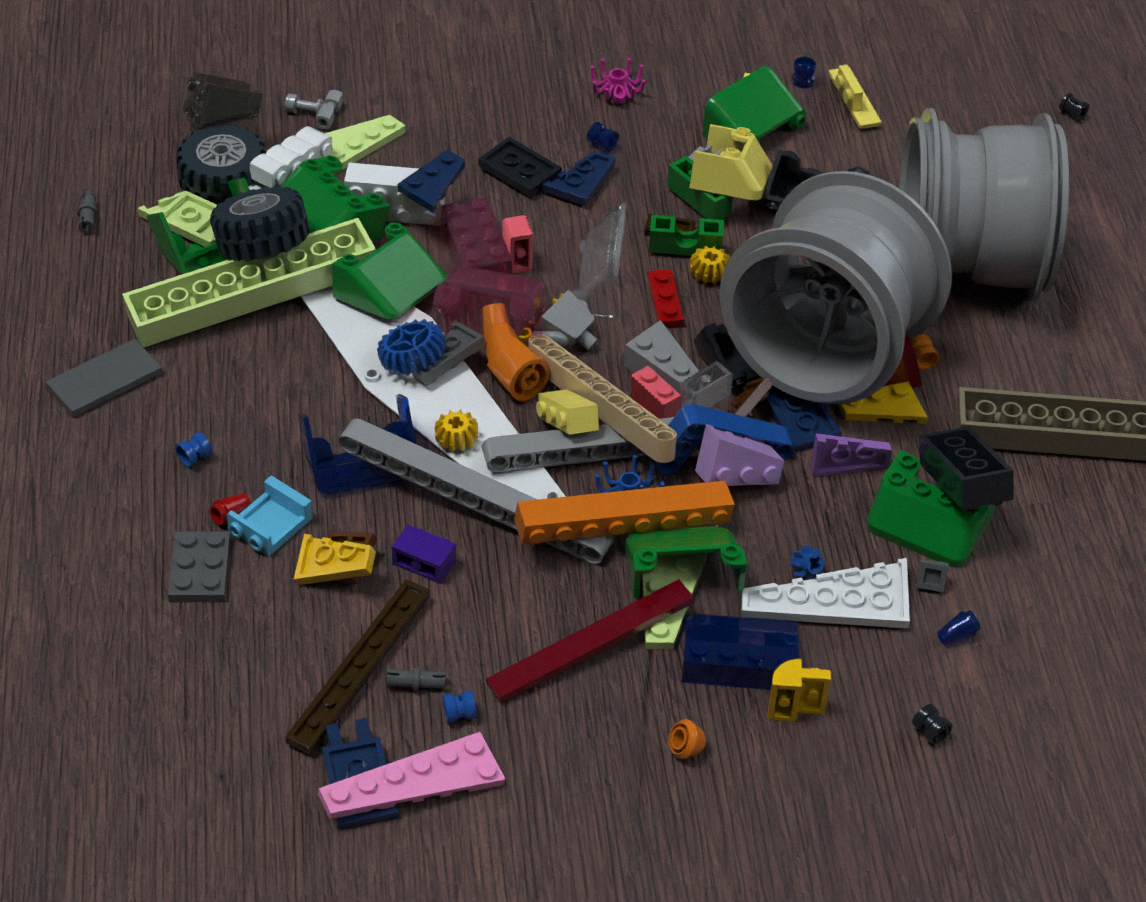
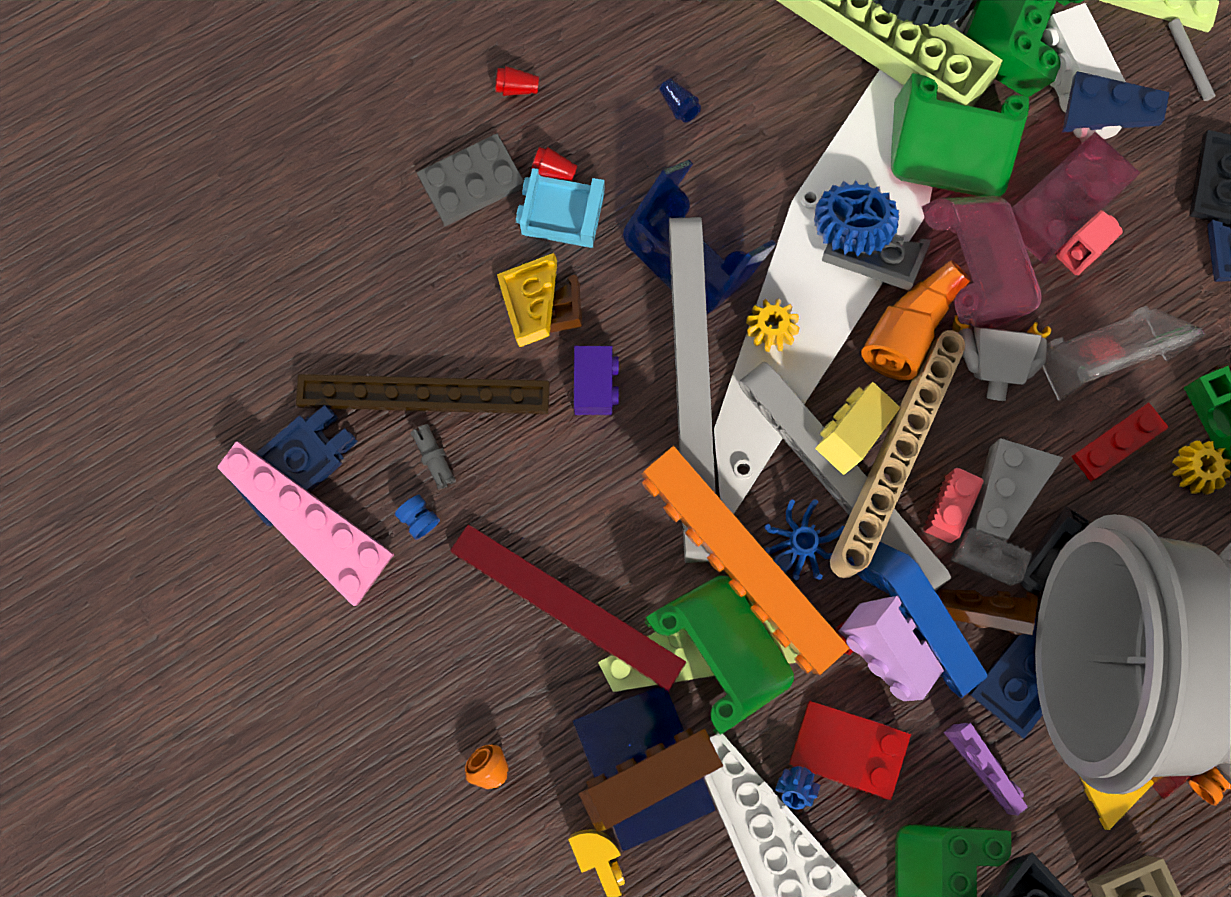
camera: 65 degrees right, 30 degrees up
(140, 503) = (515, 82): none -> red cone
(194, 449) = (608, 88): blue wheel -> none
(236, 414) = (680, 101): none -> clear blue cone
(417, 146) = (1191, 59): none -> light grey bar
(754, 625) = (649, 780): none -> reddish brown brick
(798, 519) = (850, 750): none -> red slope

